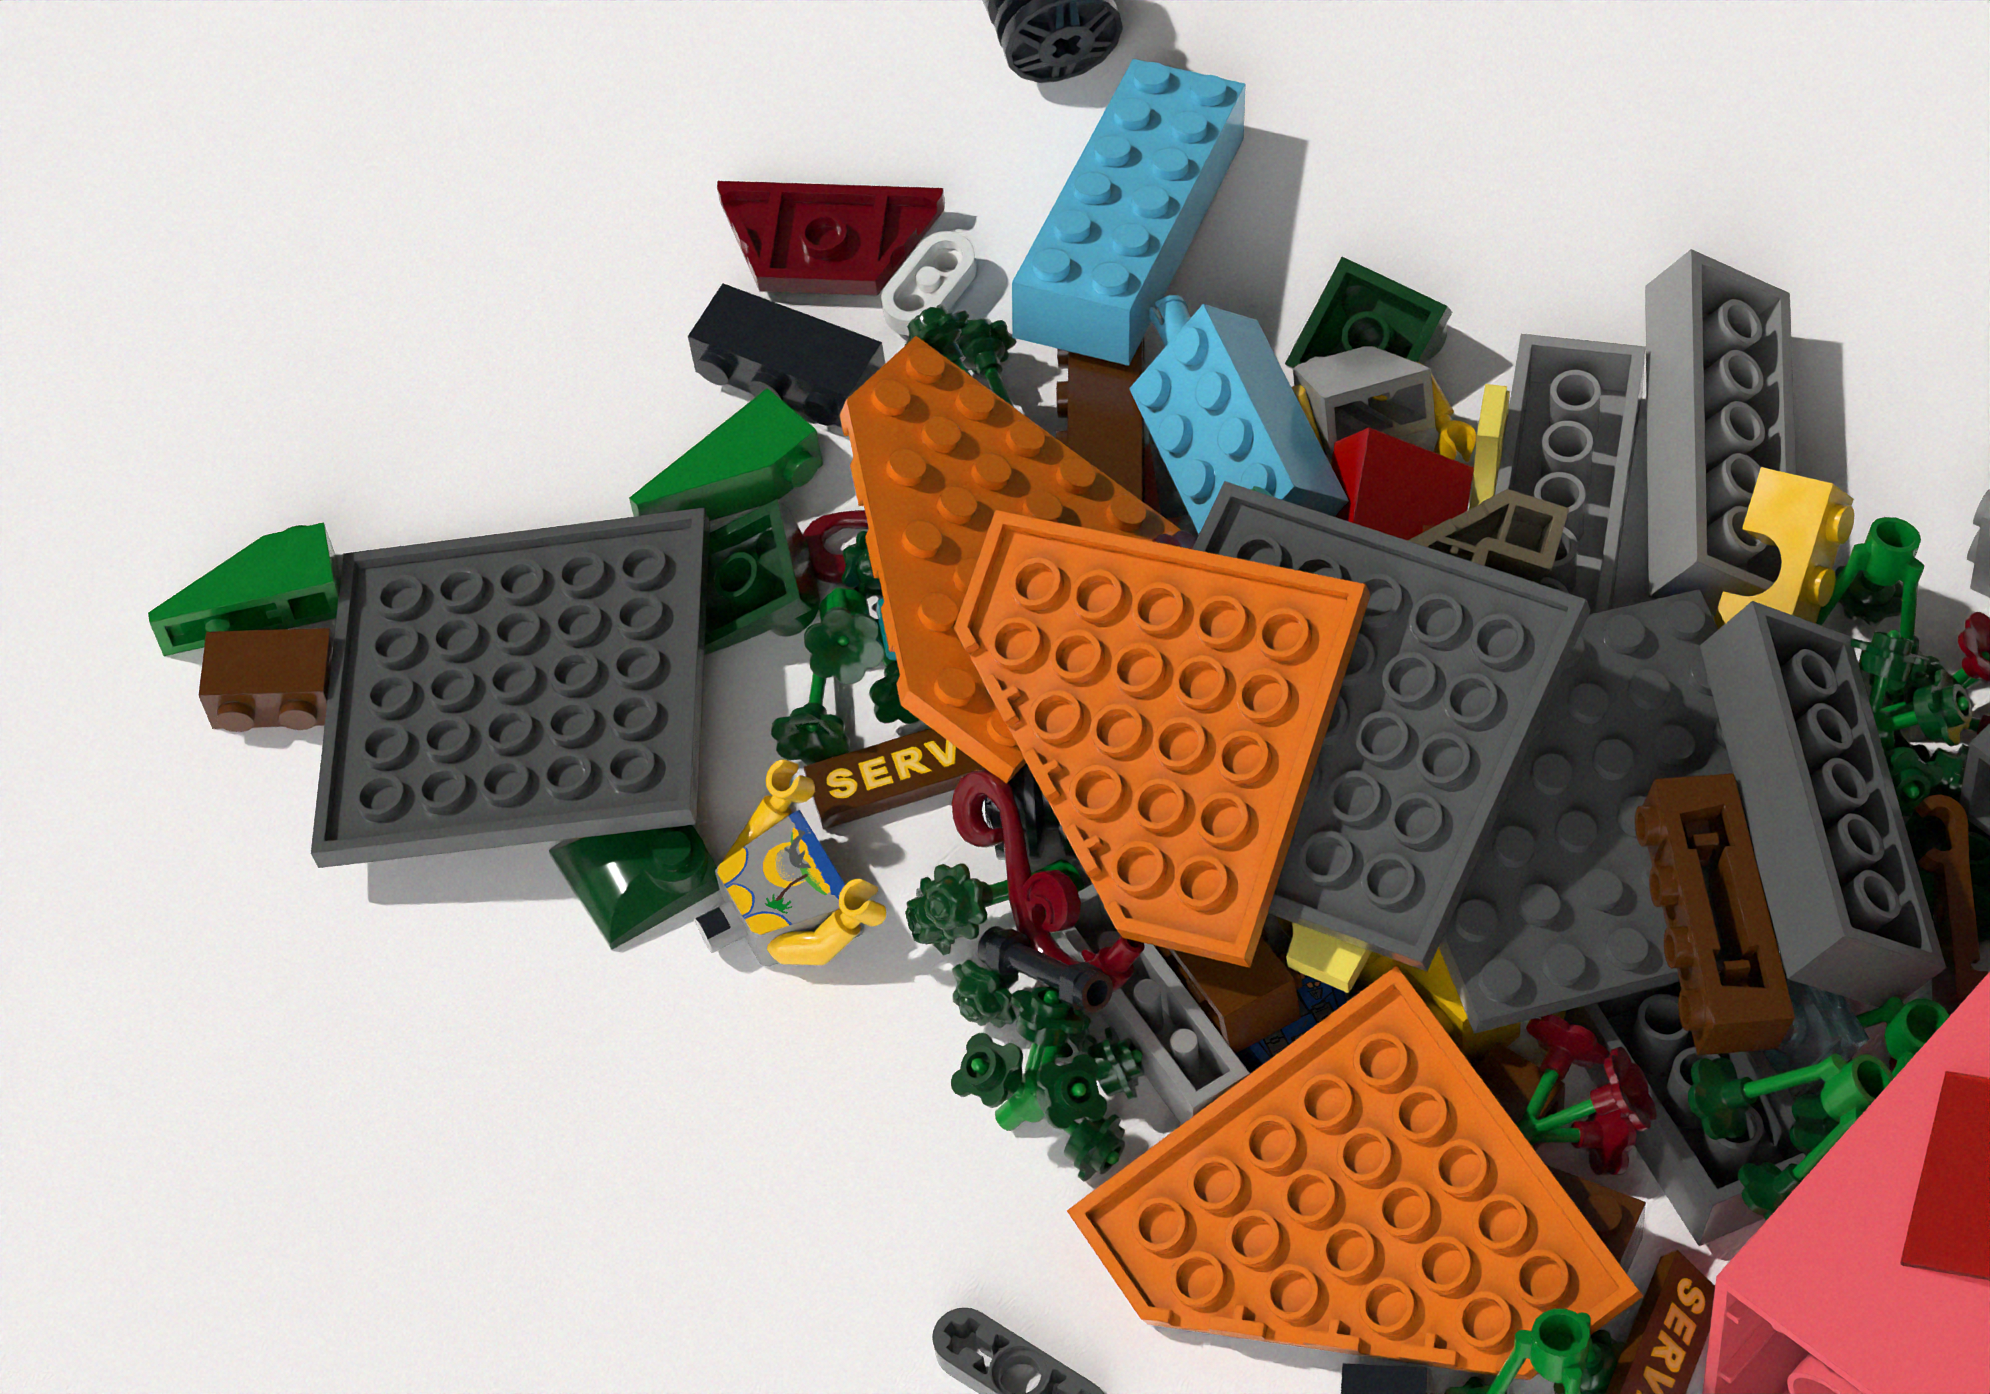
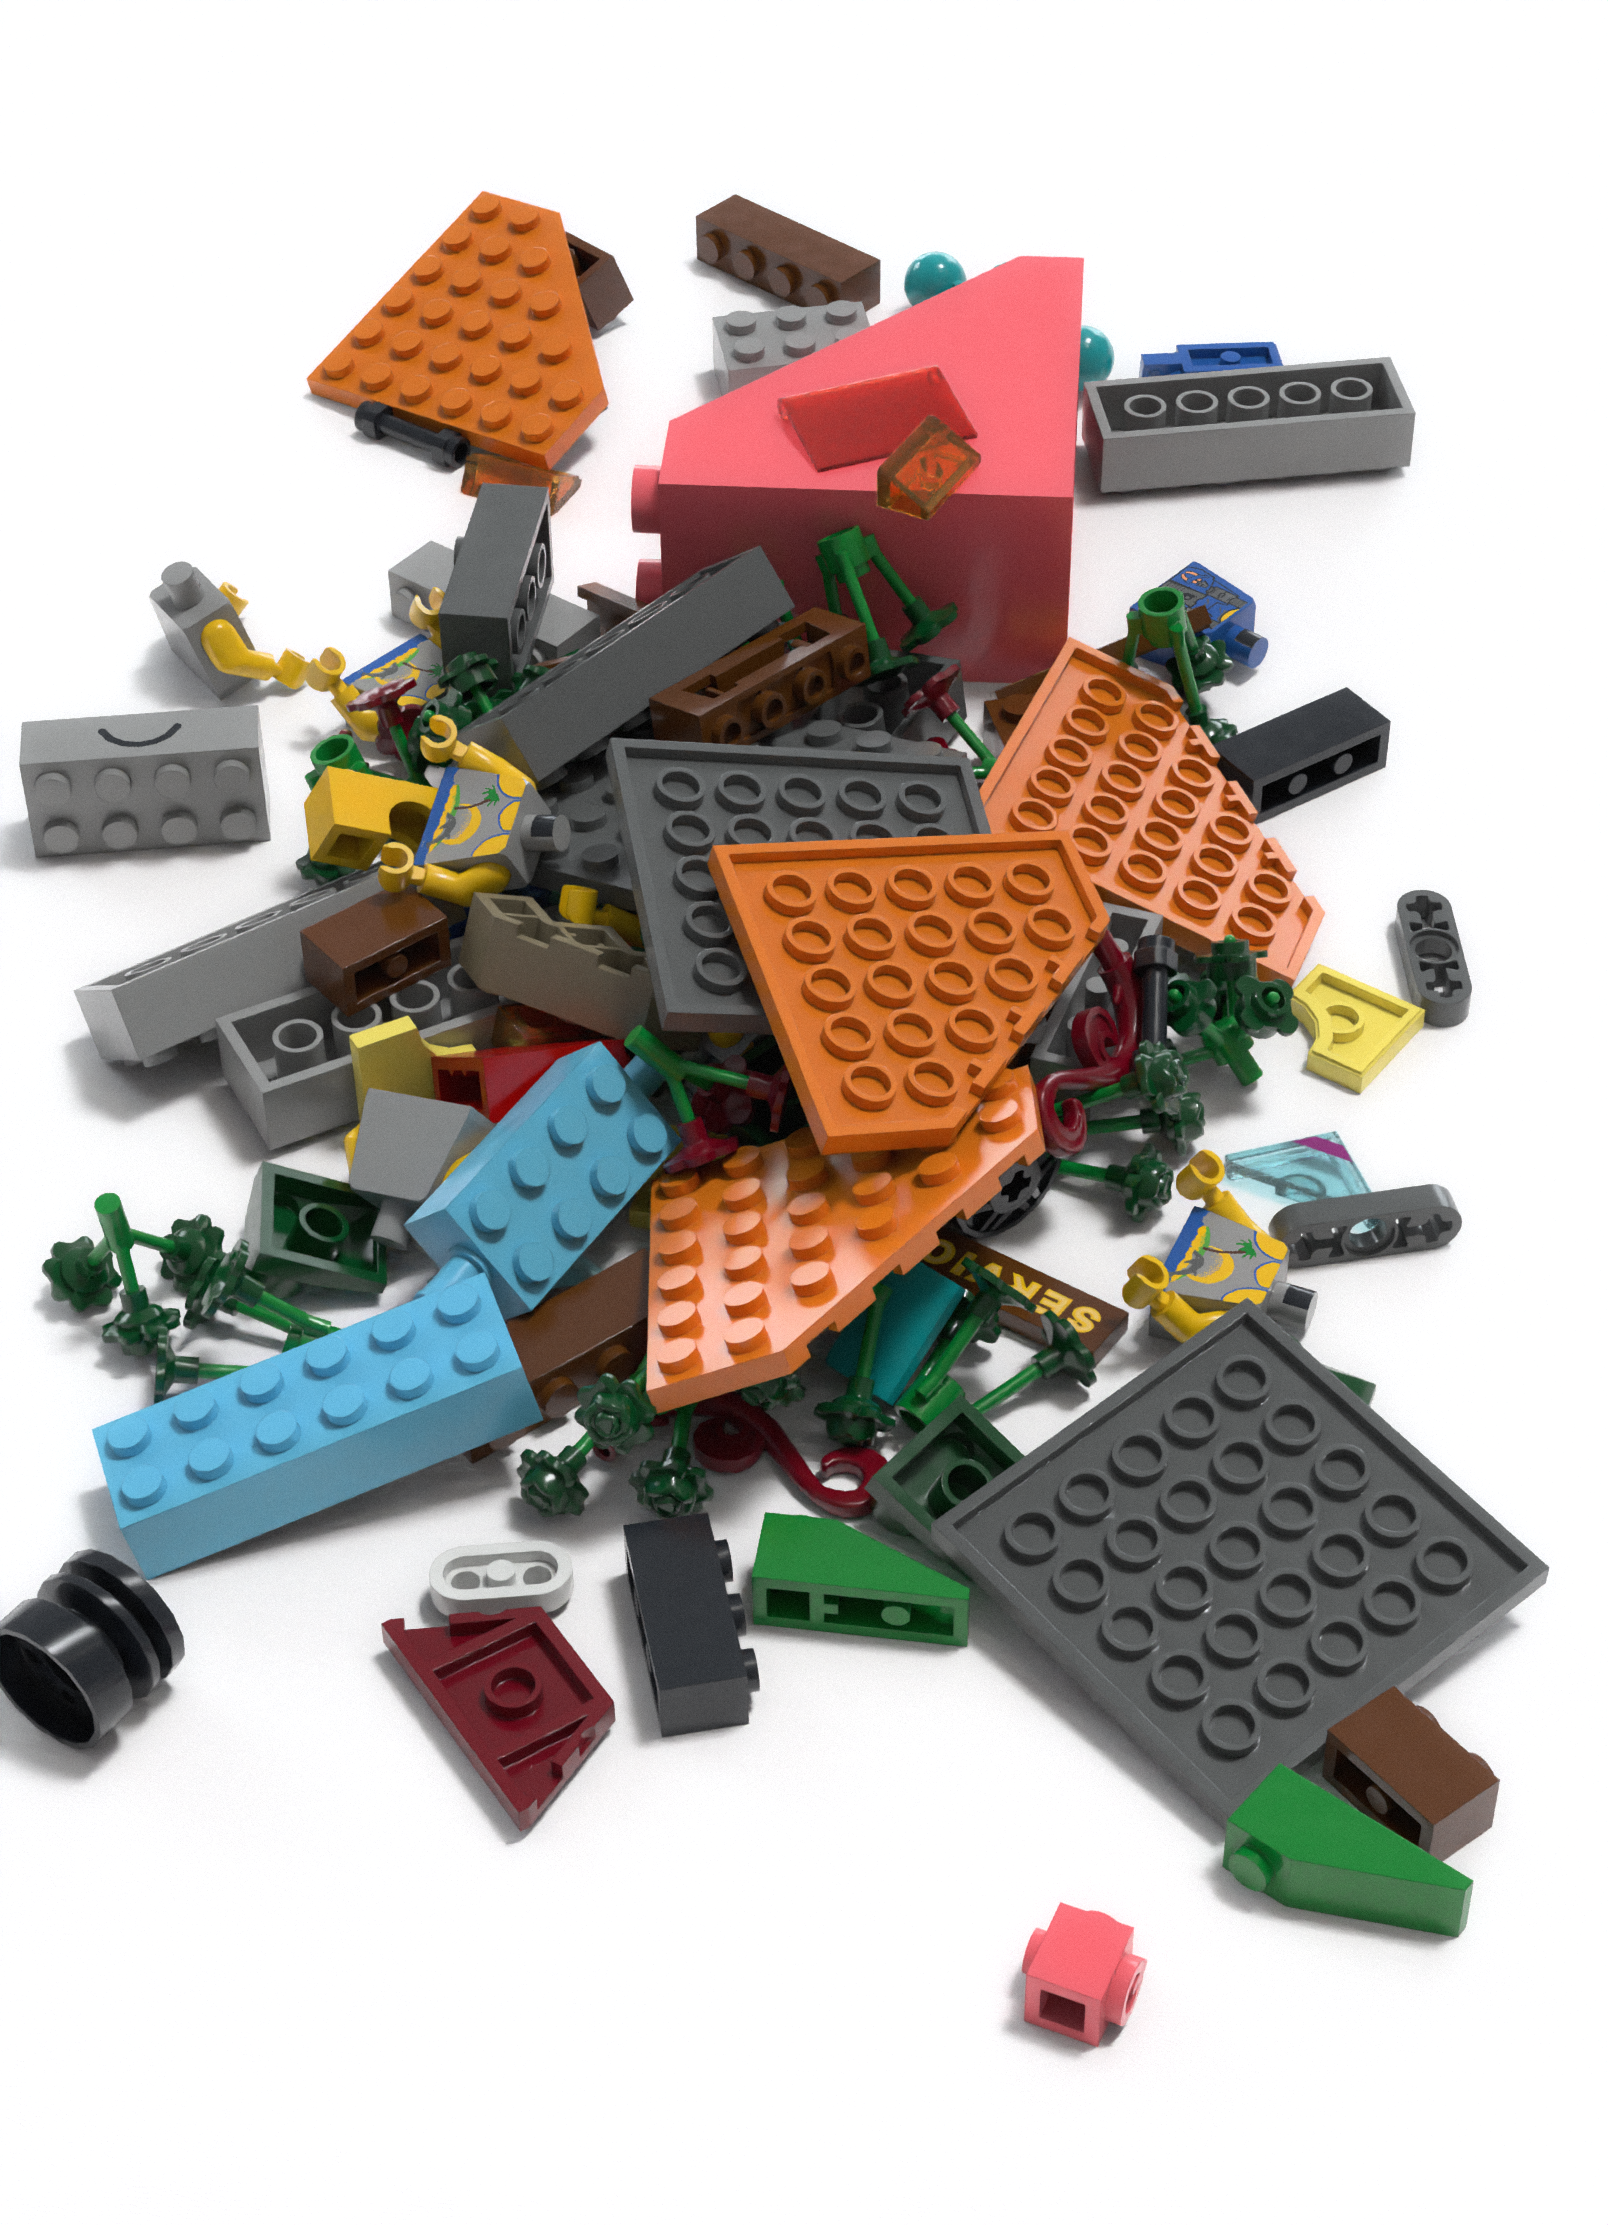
camera: 135 degrees left, 15 degrees down
(321, 400) = (1081, 1974): none -> coral brick
(753, 1047) = (1423, 1212): none -> dark grey beam
(853, 1072) = (1302, 1169): none -> clear light blue tile
(998, 1248) = (1352, 1026): none -> light yellow tile
(1301, 187) = (227, 1288): none -> dark green plant
(1372, 197) = (87, 1273): none -> dark green plant
(1616, 465) = (375, 948): none -> reddish brown brick
(1663, 566) = (480, 829): none -> torso
(1846, 1147) = (925, 470): none -> clear orange slope

